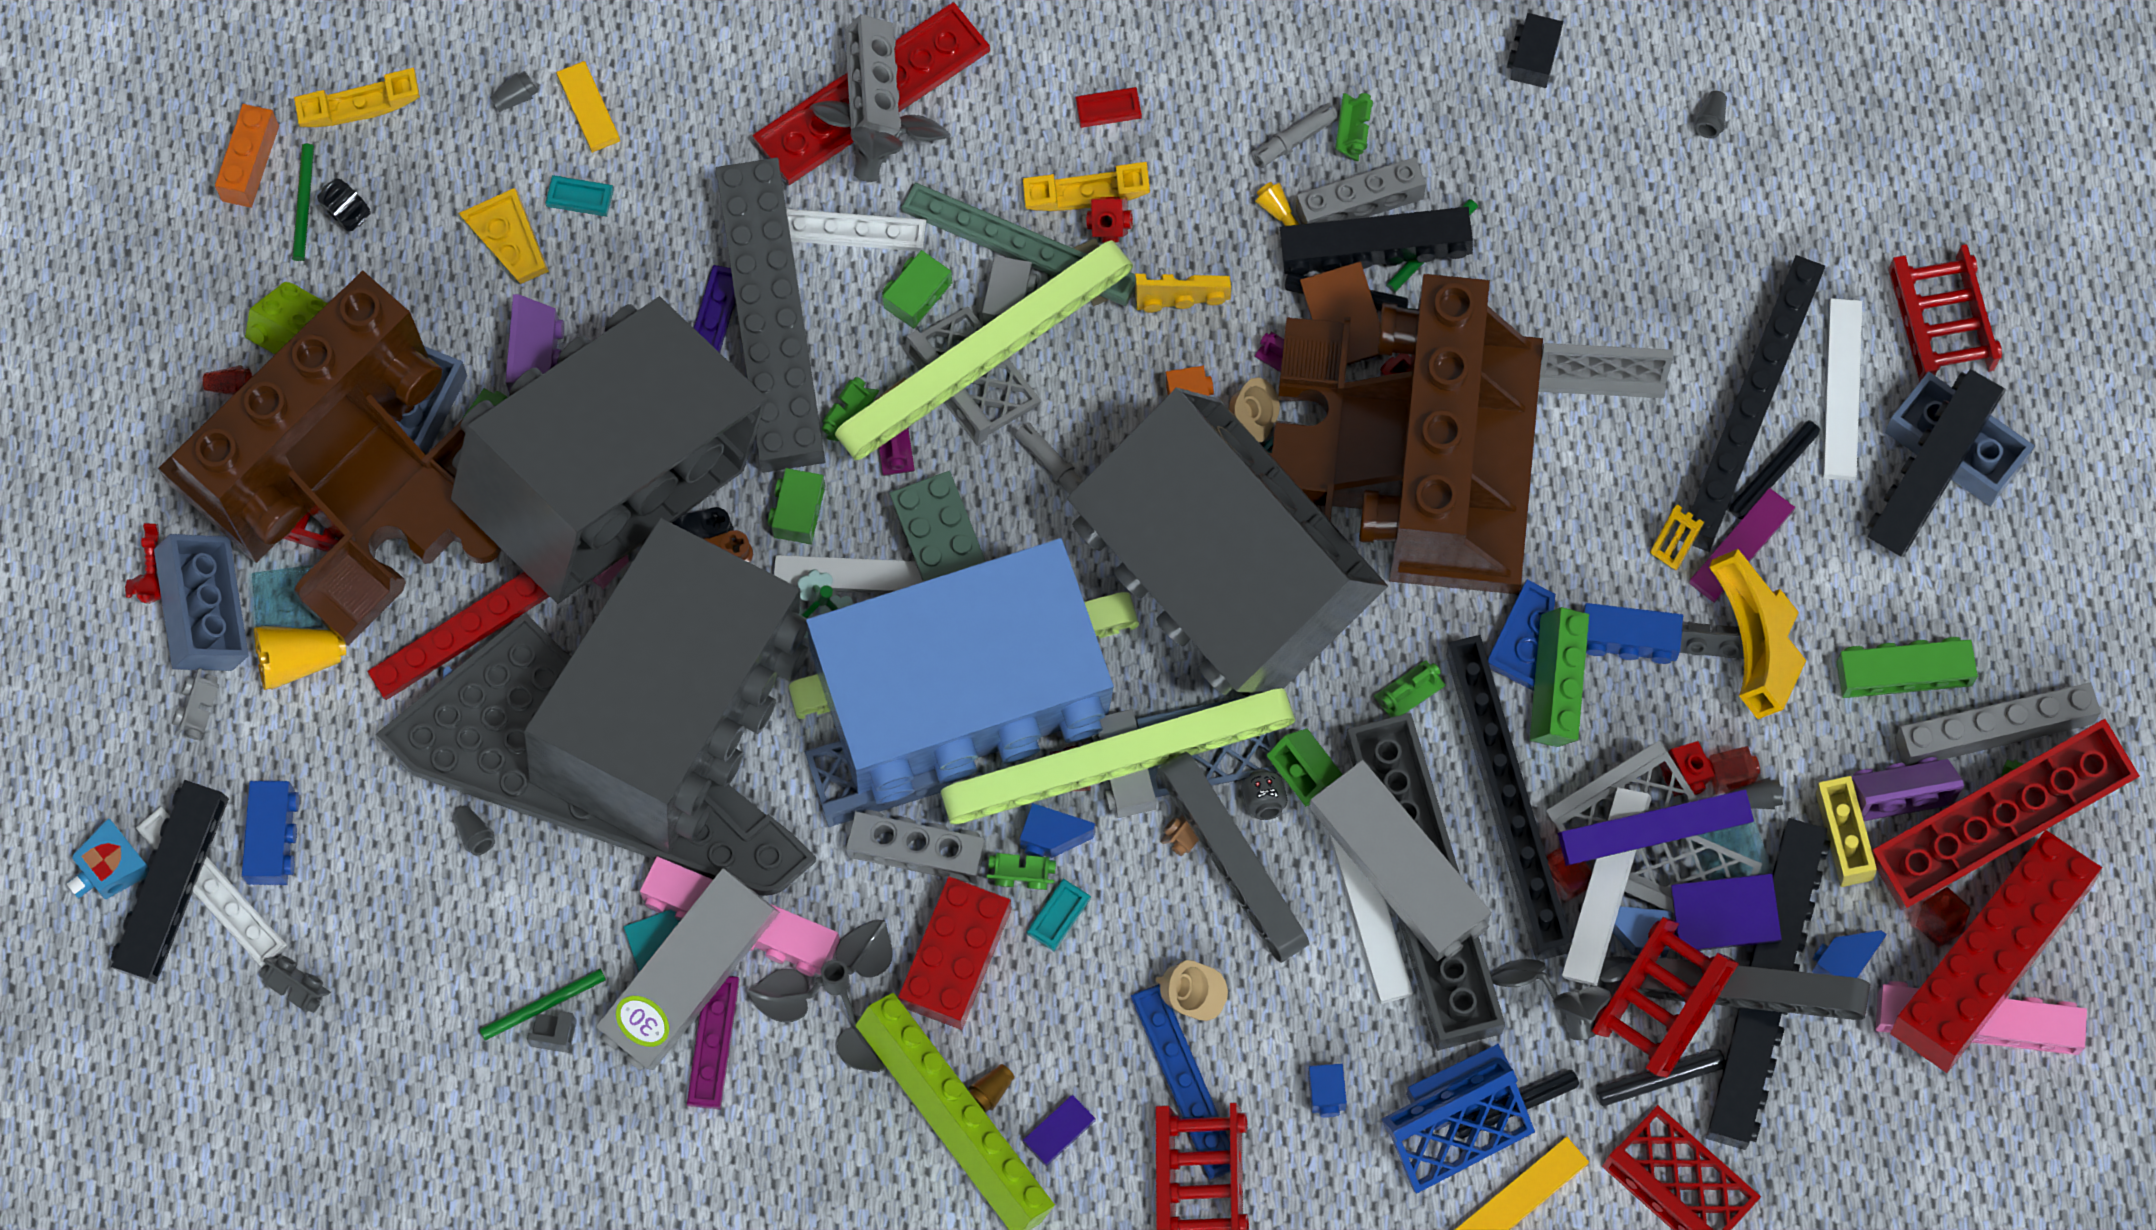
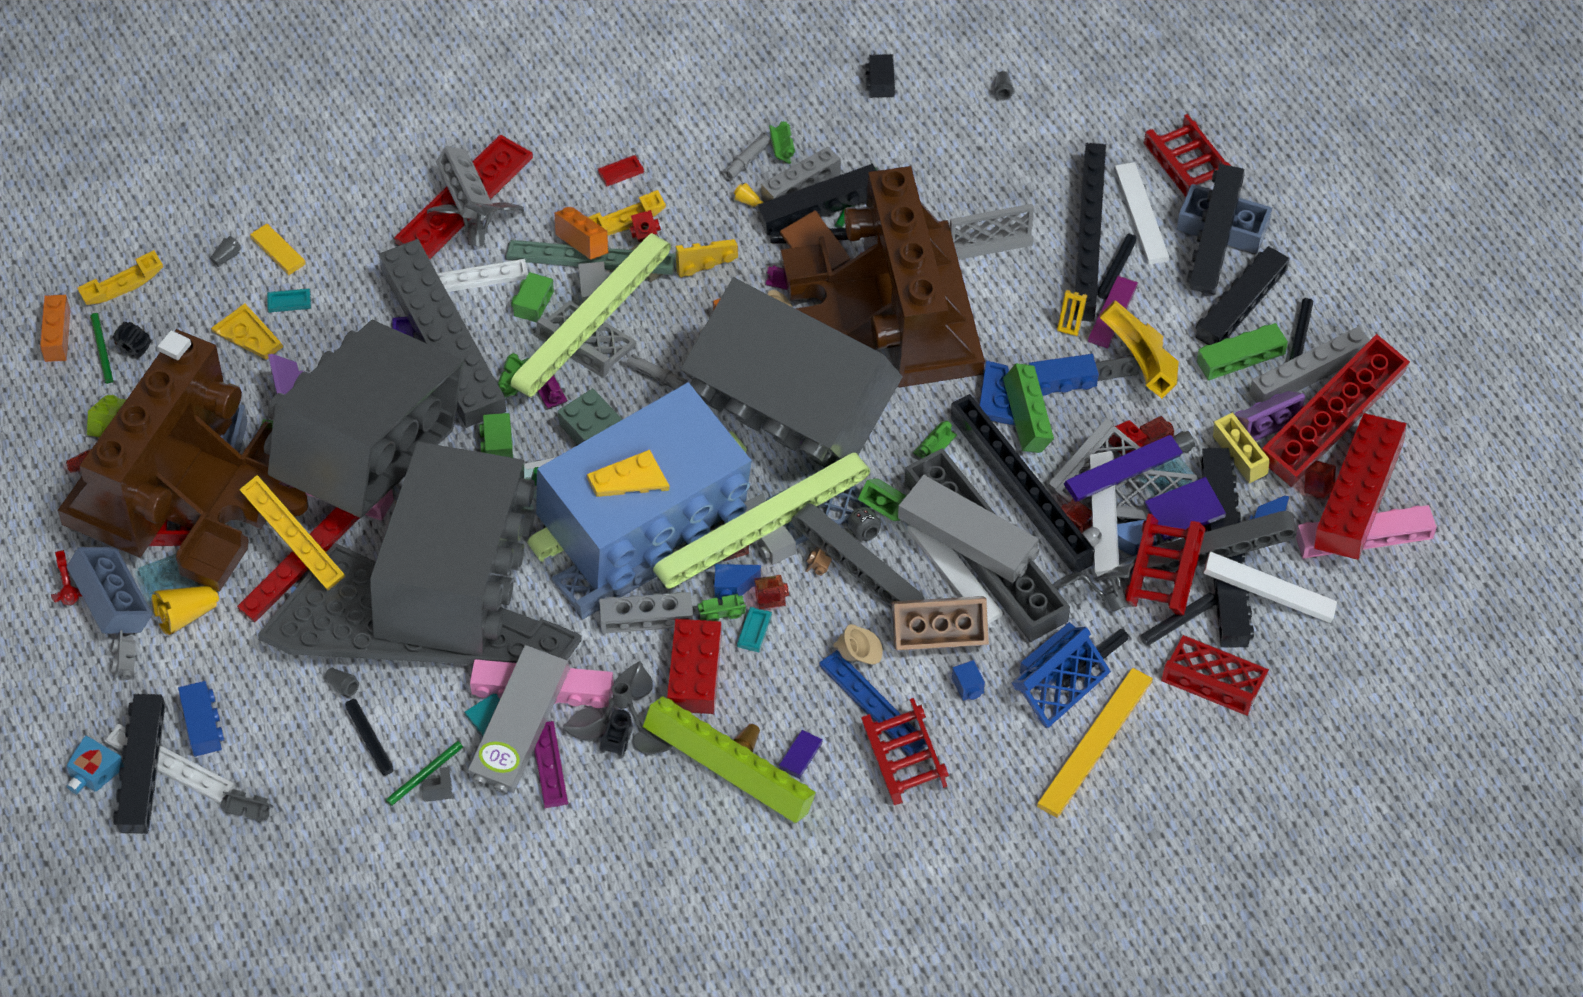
camera: 20 degrees left, 15 degrees down
(346, 304) = (174, 345): none -> white tile
(463, 593) = (292, 532): none -> yellow plate
(485, 927) = (369, 737): none -> black axle
(815, 1028) = (617, 737): none -> black piece
(930, 667) = (629, 475): none -> yellow wing
(1014, 206) = (581, 232): none -> orange brick
(1097, 867) = (770, 591): none -> clear red brick
(1314, 991) = (940, 623): none -> medium nougat brick
(1574, 922) = (1093, 536): none -> light grey hinge
(1806, 1073) = (1270, 587): none -> white tile
(1940, 577) = (1242, 297): none -> black brick
(2008, 657) = (1301, 328): none -> black axle

